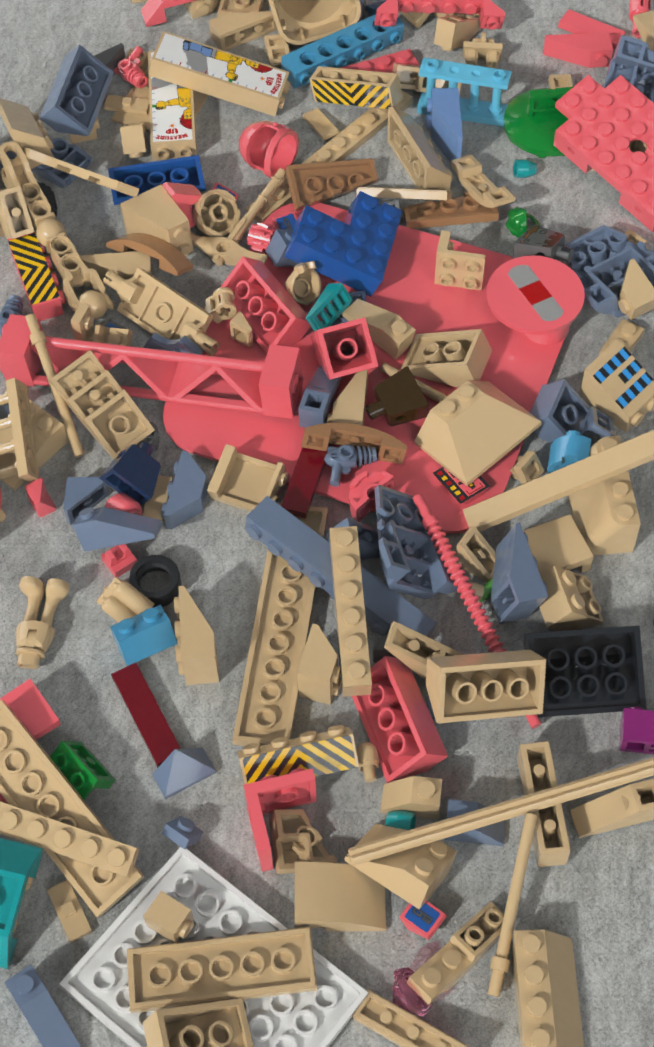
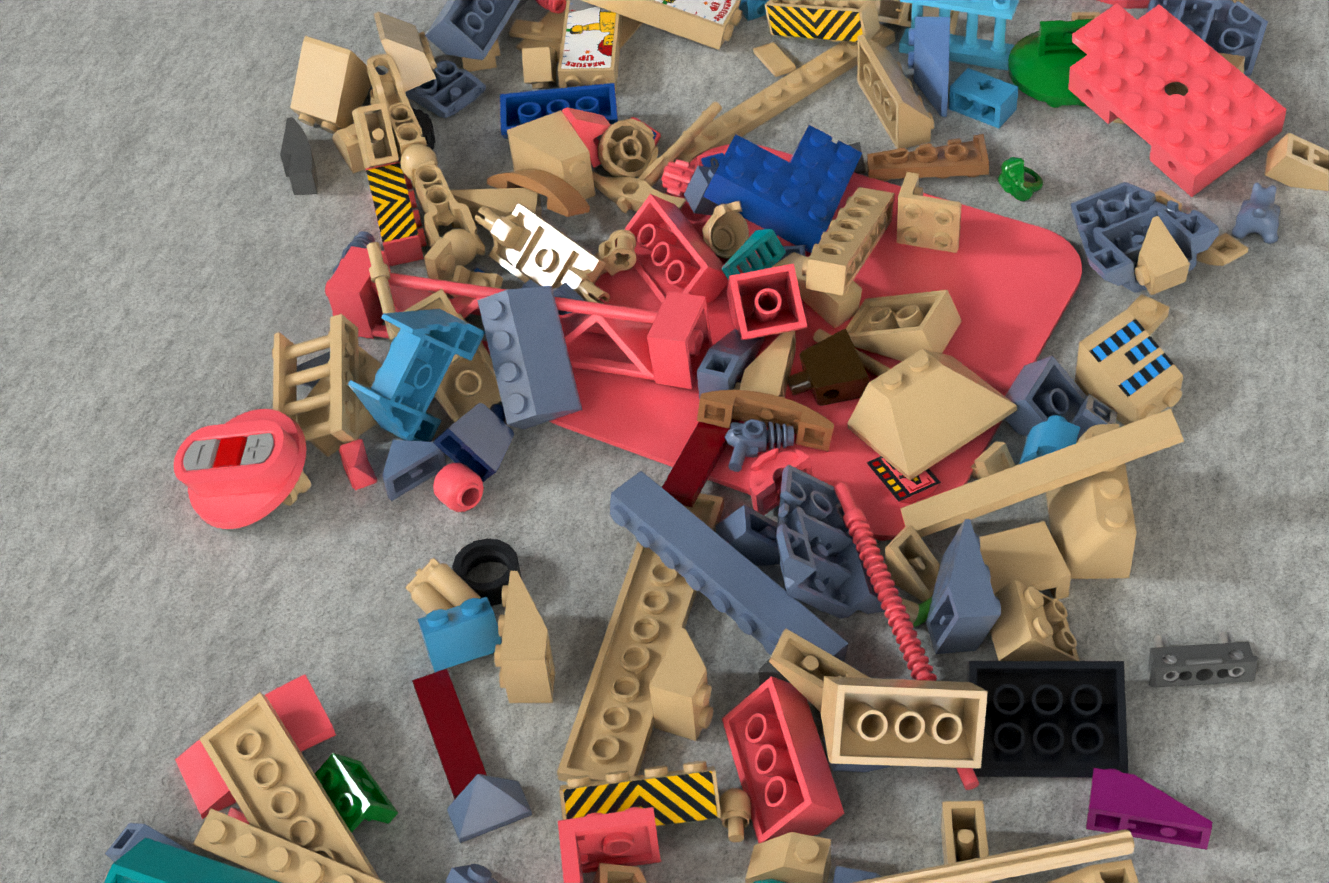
camera: 10 degrees right, 10 degrees down
(36, 636) = (325, 627): tan piece -> none
(80, 172) = (463, 94): tan tile -> none
(82, 421) = (415, 370): none -> dark azure wedge
(112, 527) = (439, 501): sand blue slope -> none
(119, 560) = (444, 543): coral tile -> none
(154, 506) = (504, 481): tan piece -> none
(166, 401) = (529, 356): none -> sand blue slope
(185, 493) = (541, 470): sand blue slope -> none
(241, 330) = (639, 282): tan slope -> none
(245, 480) = (615, 454): tan panel -> none
(268, 146) = (704, 76): coral piece -> none
(326, 180) = (776, 118): medium nougat wing -> none
(350, 611) = (730, 618): tan brick -> none
(401, 290) = (848, 241): none -> tan brick
(406, 193) = (878, 137): tan tile -> none
(478, 185) = (965, 132): tan slope -> none
(490, 151) = (983, 98): none -> dark azure brick
(524, 168) = (1029, 117): teal hose -> none
(536, 297) = (1026, 261): coral piece -> none
(542, 242) = (1039, 205): dark grey torso -> none

